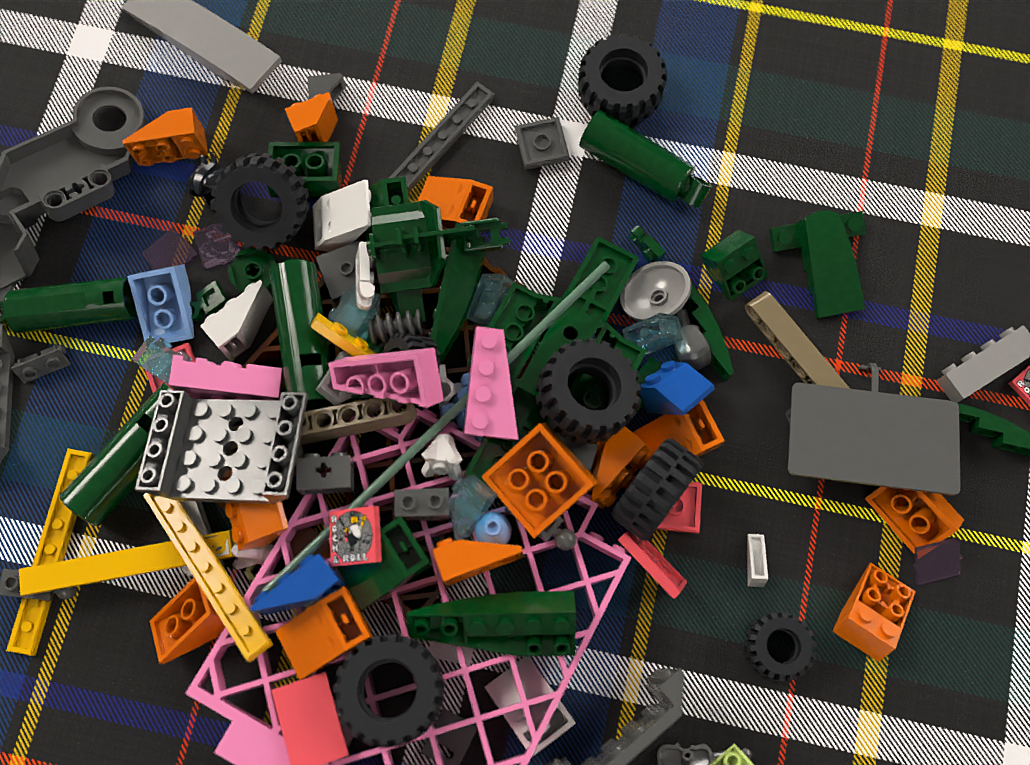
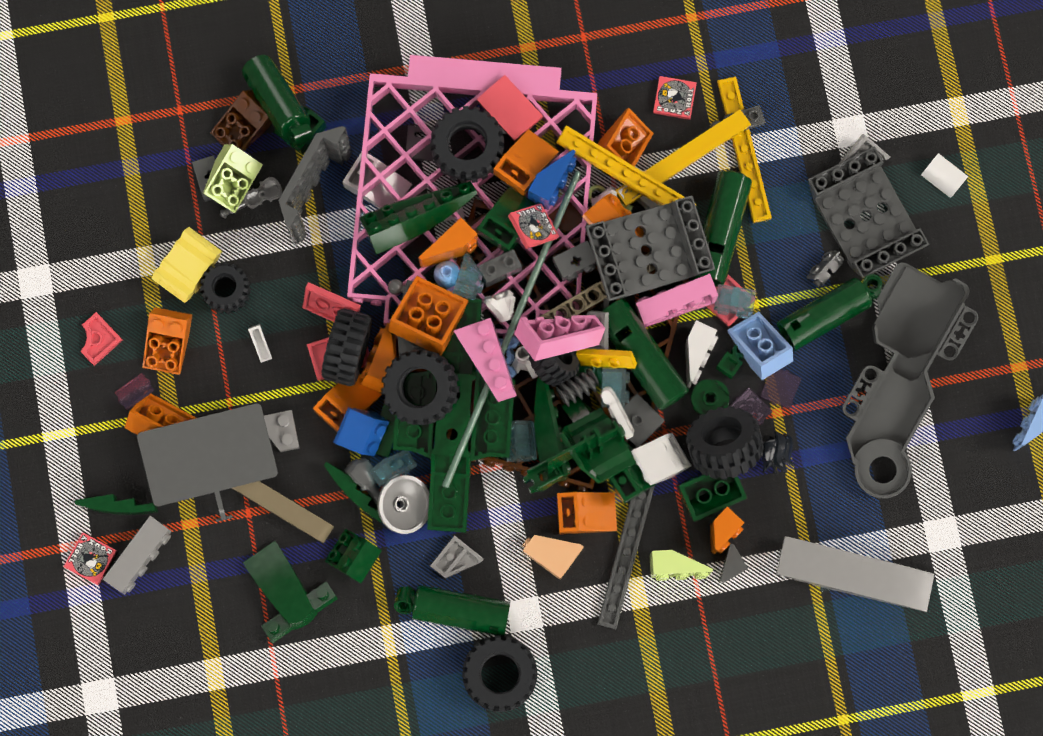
camera: 155 degrees right, 5 degrees up
(97, 657) = (674, 97): none -> tile
(168, 139) = (818, 477): orange slope -> none
(385, 108) = (673, 564): none -> yellowish green slope
(509, 178) = (551, 553): none -> light nougat slope
(541, 143) = (541, 596): dark grey plate -> none
(619, 217) = (455, 558): none -> light grey wing
(649, 248) = (421, 540): dark green plate -> none
(767, 441) = (282, 430): none -> light grey wing
(823, 697) = (185, 265): none -> light yellow slope
(960, 653) = (99, 340): none -> coral tile

